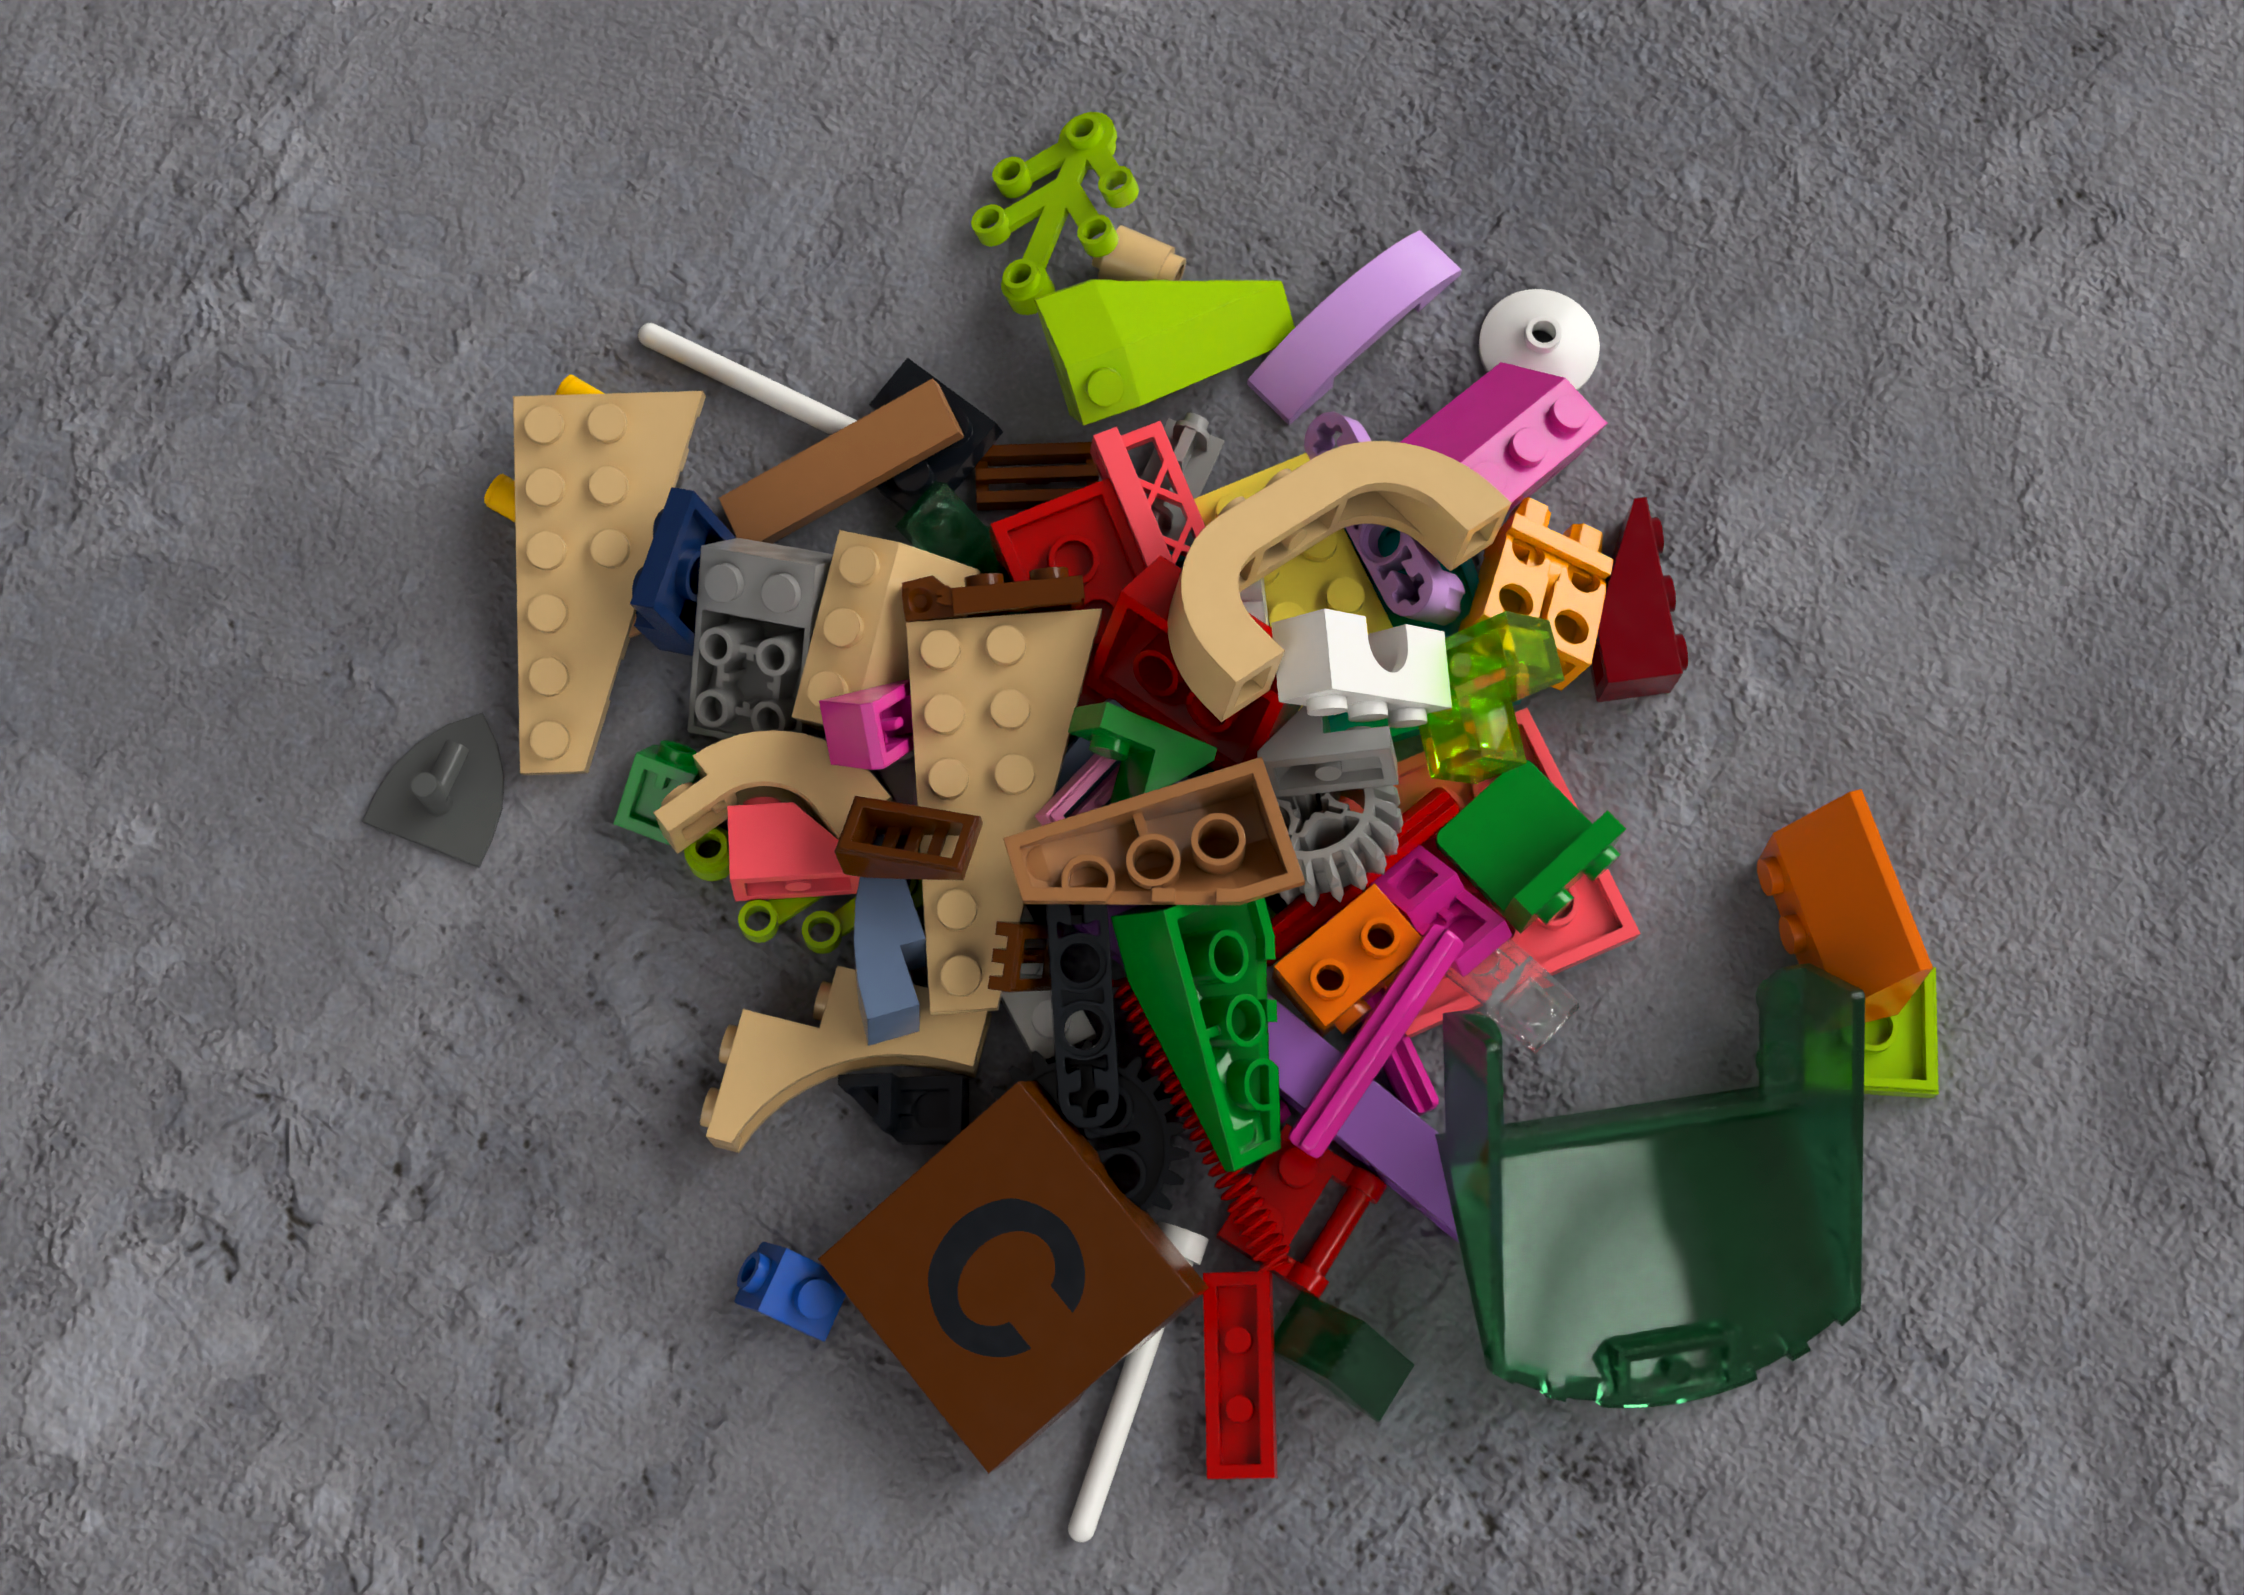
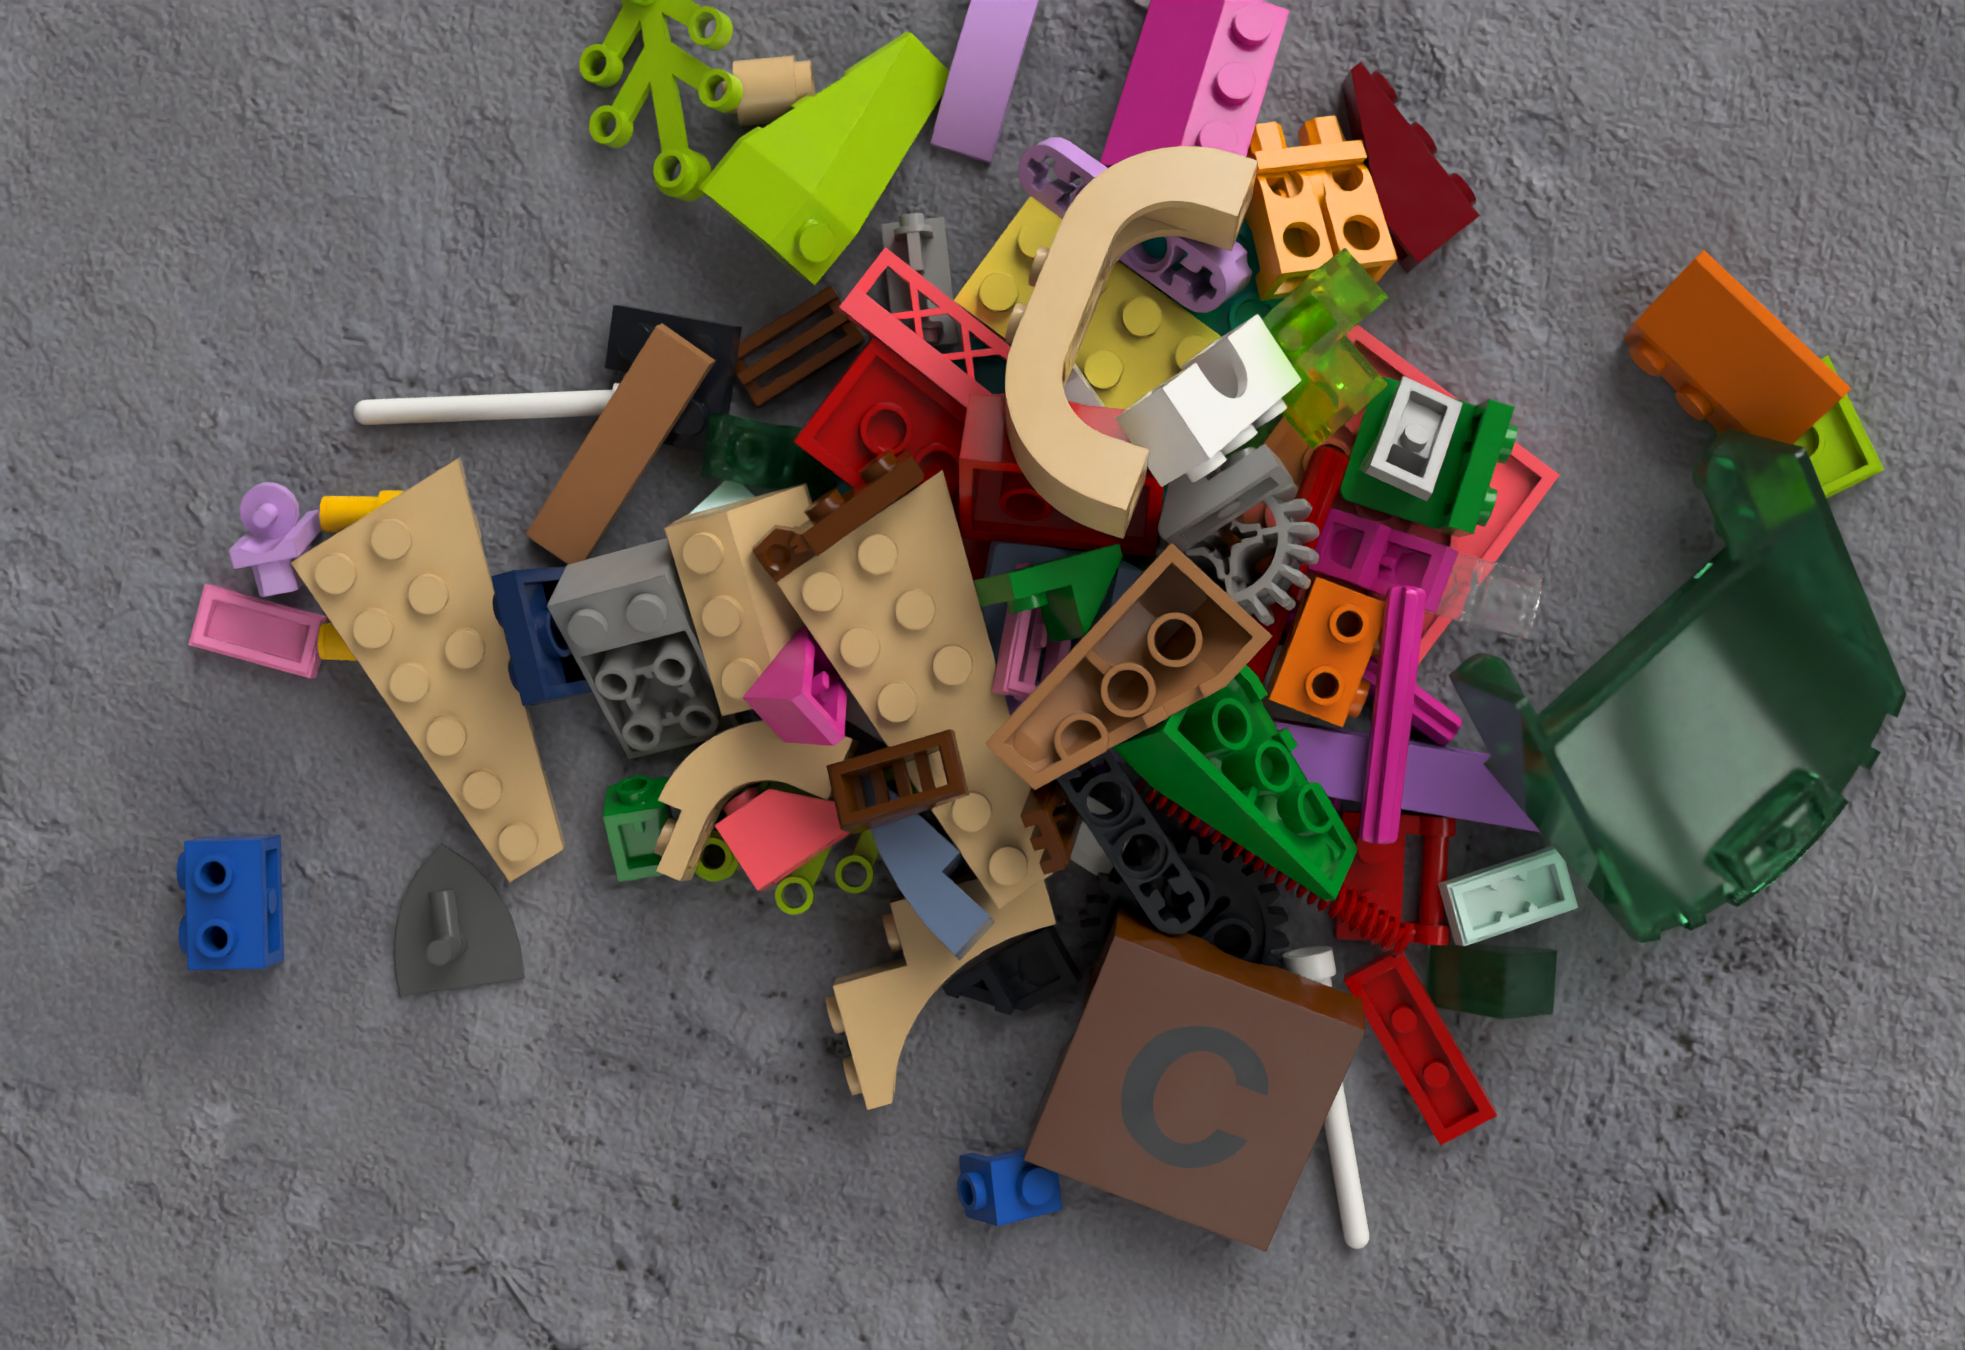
camera: 25 degrees left, 15 degrees up
(277, 655) = (232, 902): none -> blue brick
(445, 455) = (258, 631): none -> bright pink tile
(519, 360) = (273, 537): none -> lavender hips
(1395, 1283) = (1507, 896): none -> light aqua plate
(1519, 815) = (1413, 438): none -> slope

